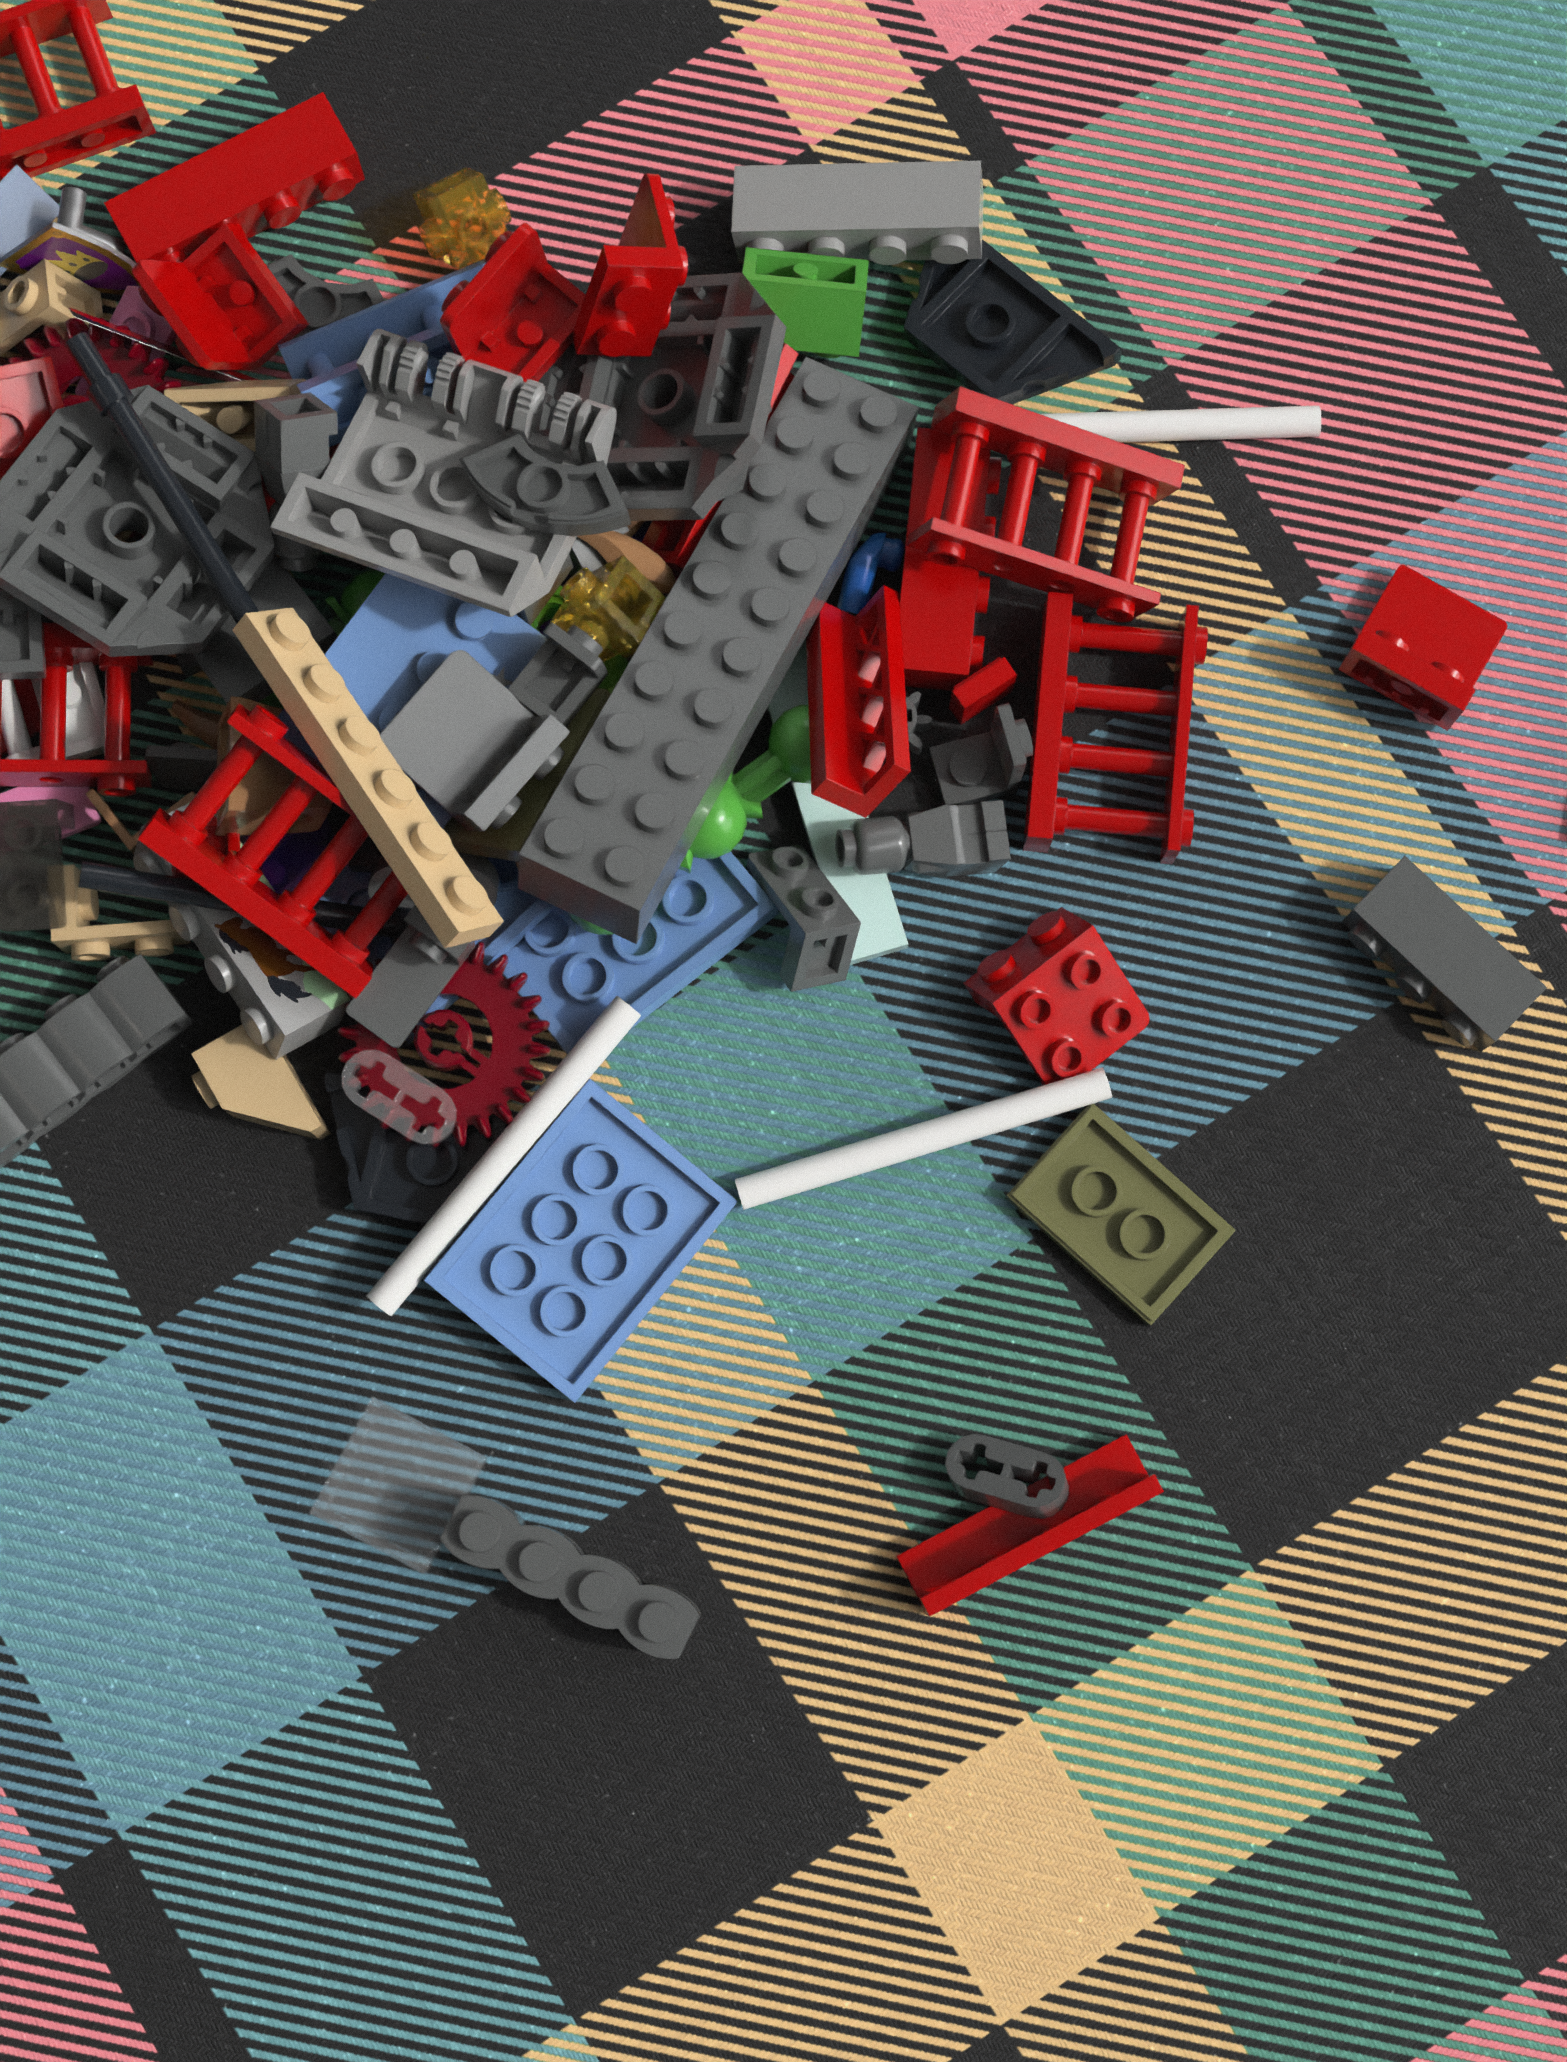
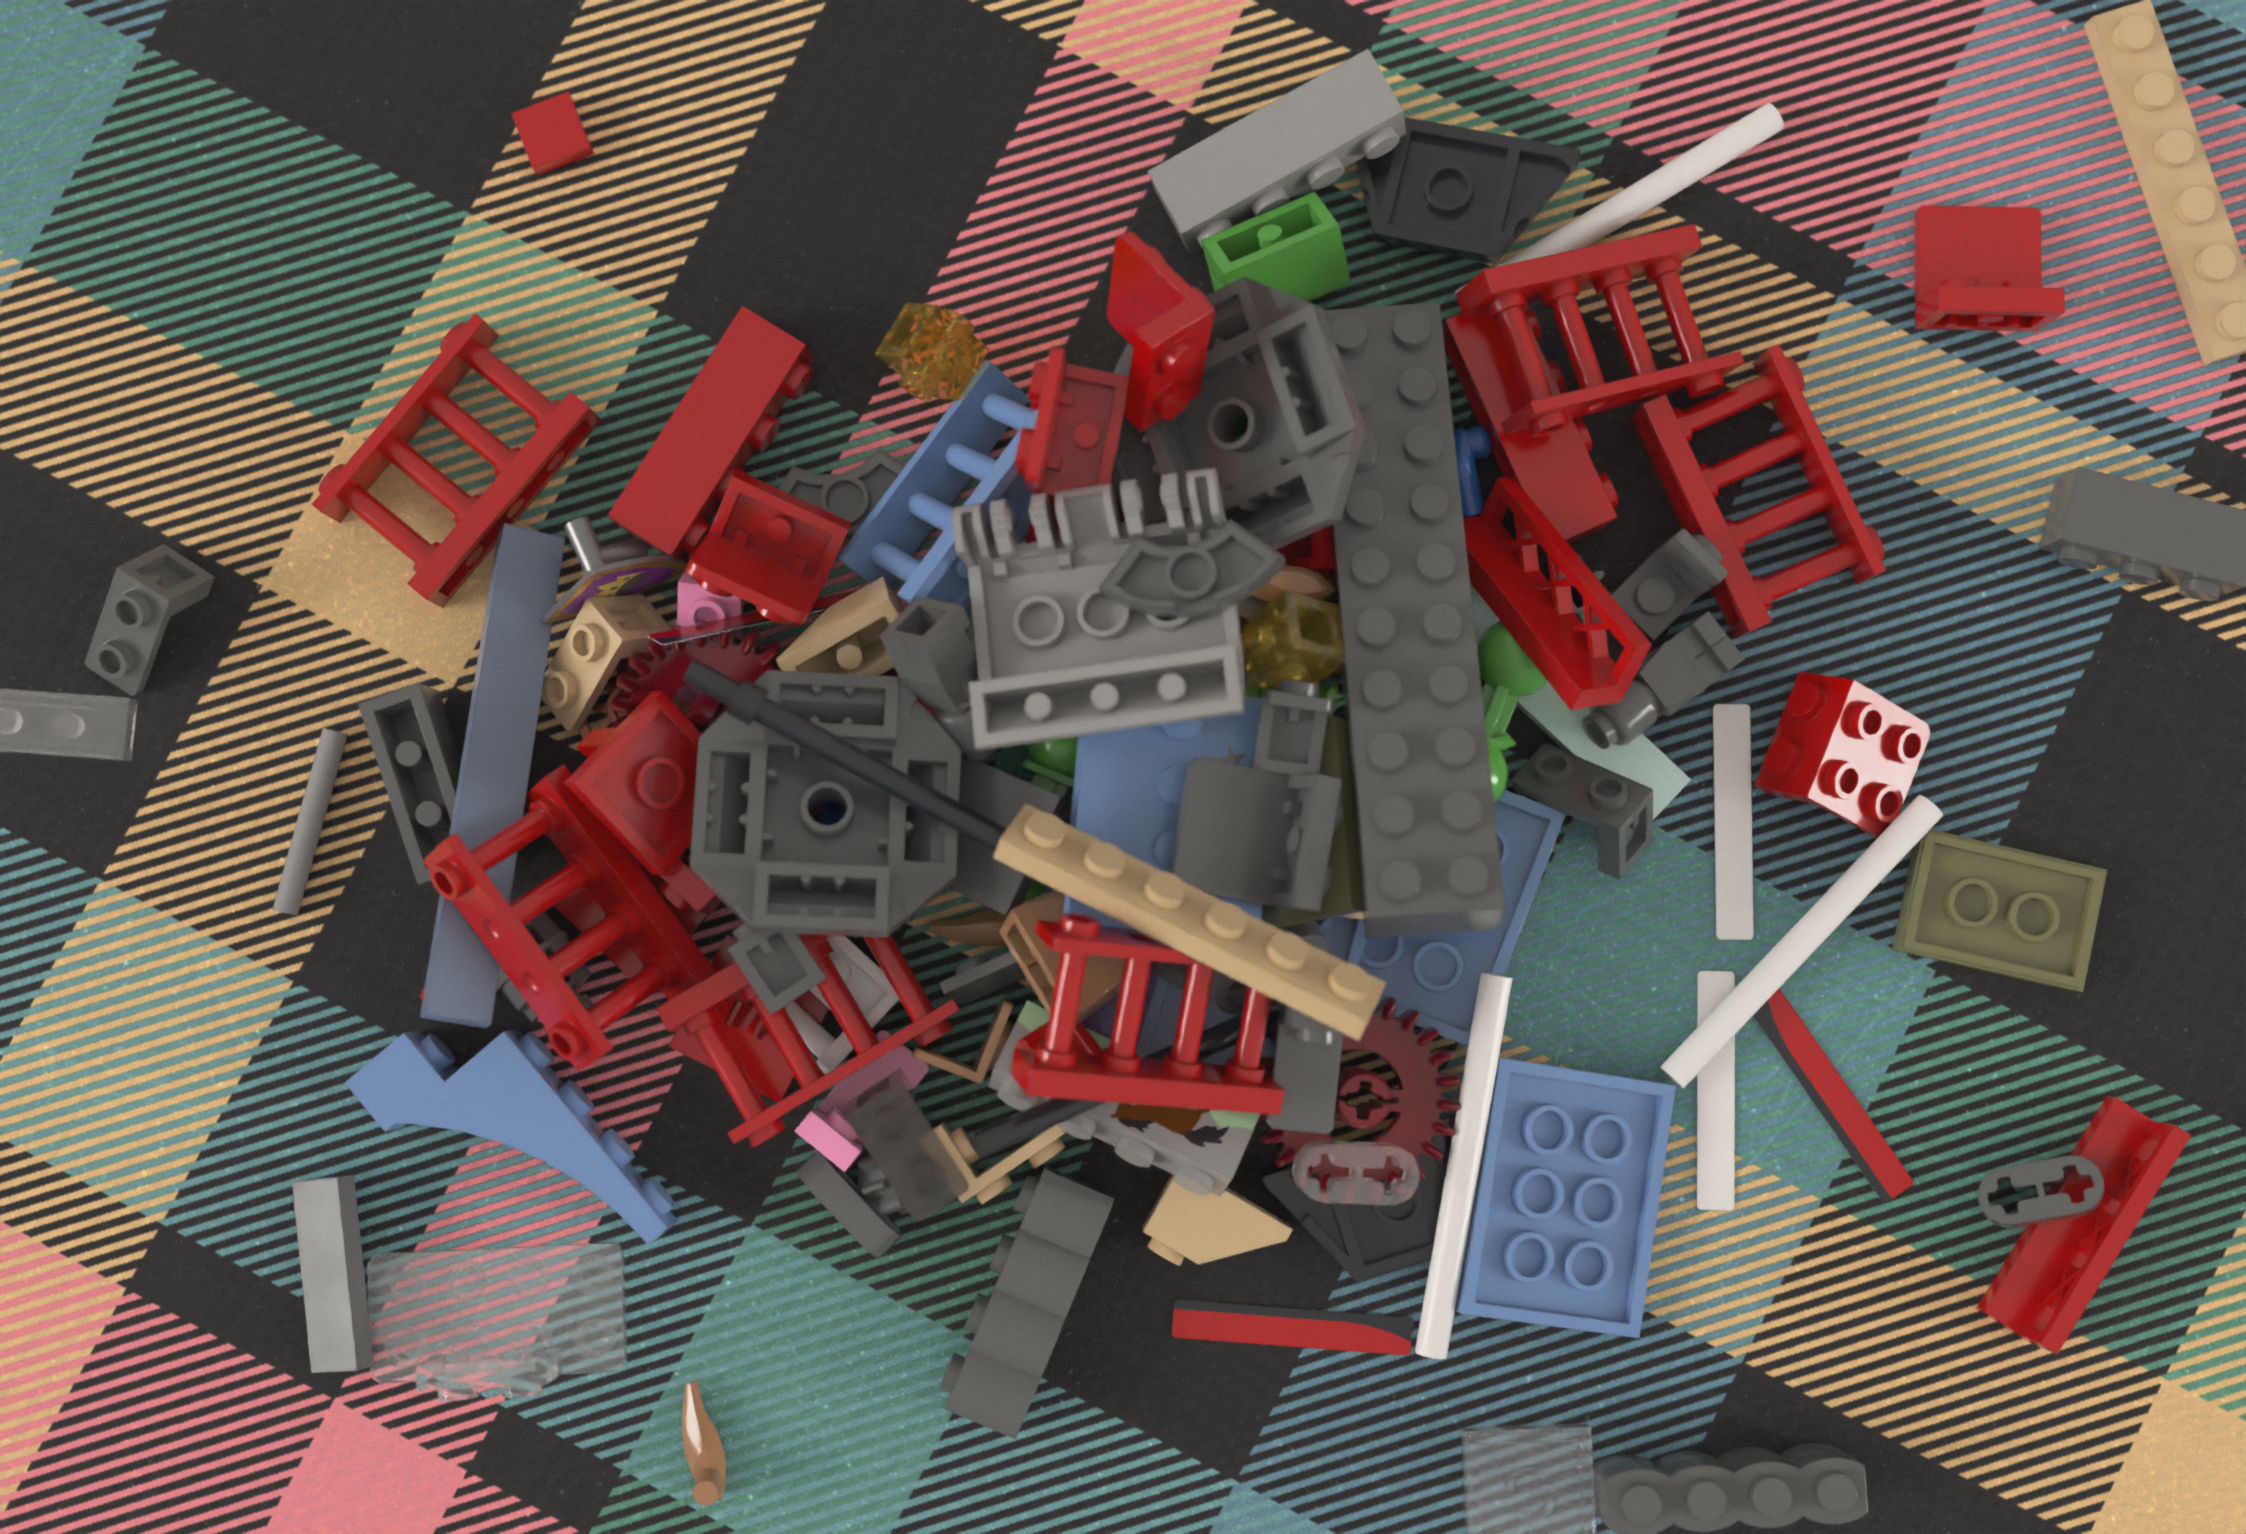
camera: 30 degrees left, 5 degrees up
(277, 1223) = (1292, 1327): none -> red sticker
(766, 1246) = (1716, 1105): none -> white sticker
(875, 1294) = (1833, 1097): none -> red sticker
(928, 1007) = (1733, 822): none -> white sticker
(982, 689) = (1630, 517): red tile -> none

